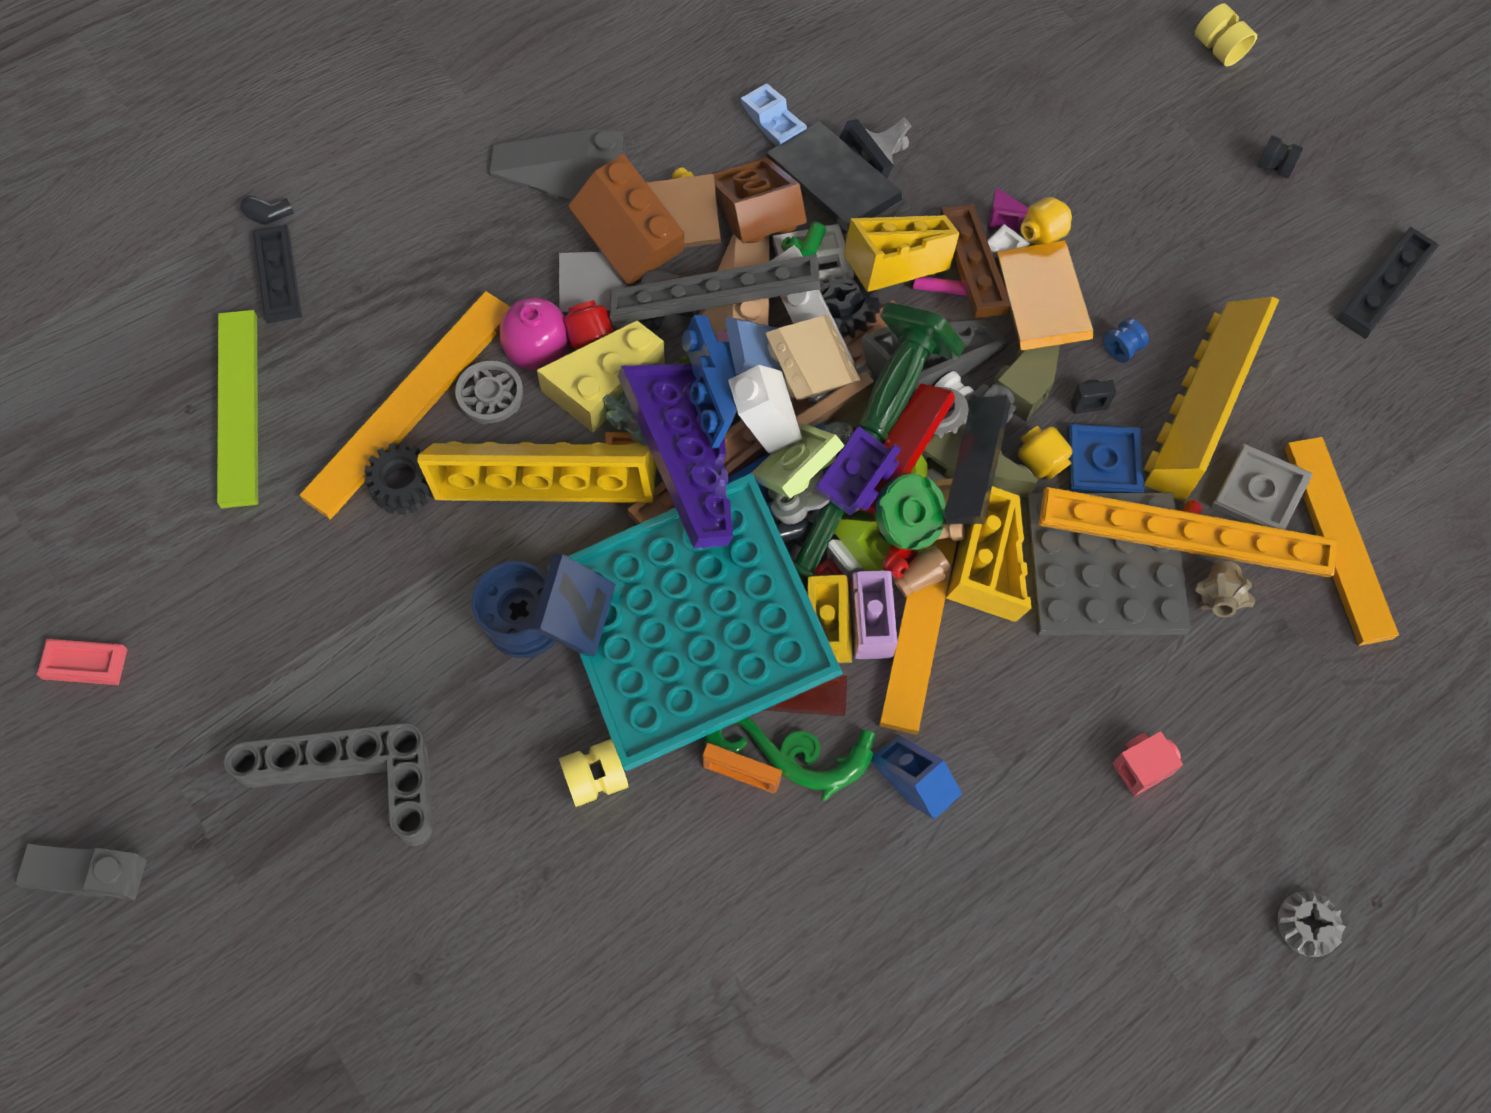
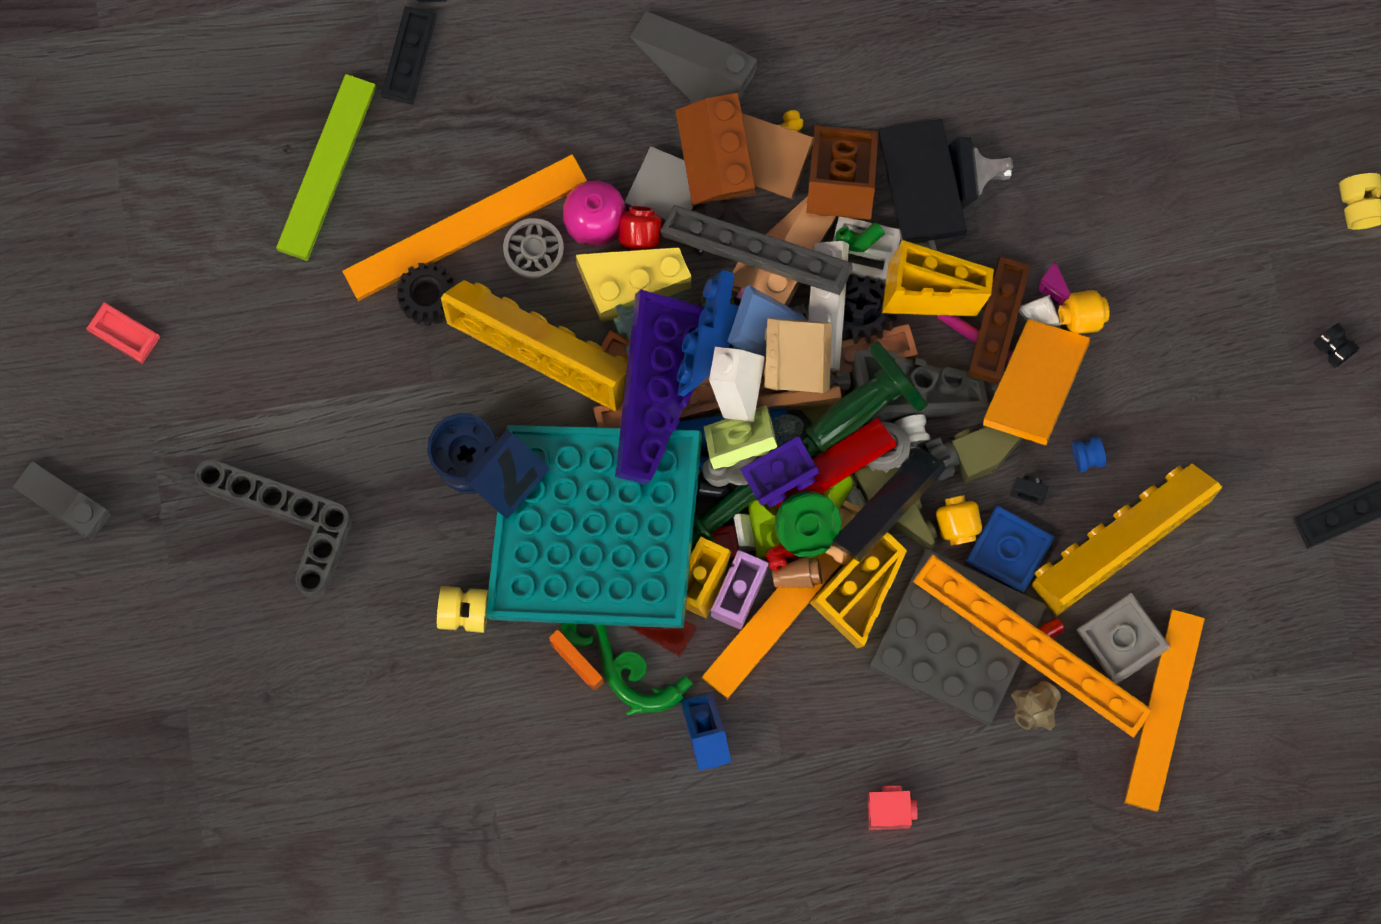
camera: 30 degrees right, 10 degrees up
(771, 115) = (904, 92): light blue slope -> none

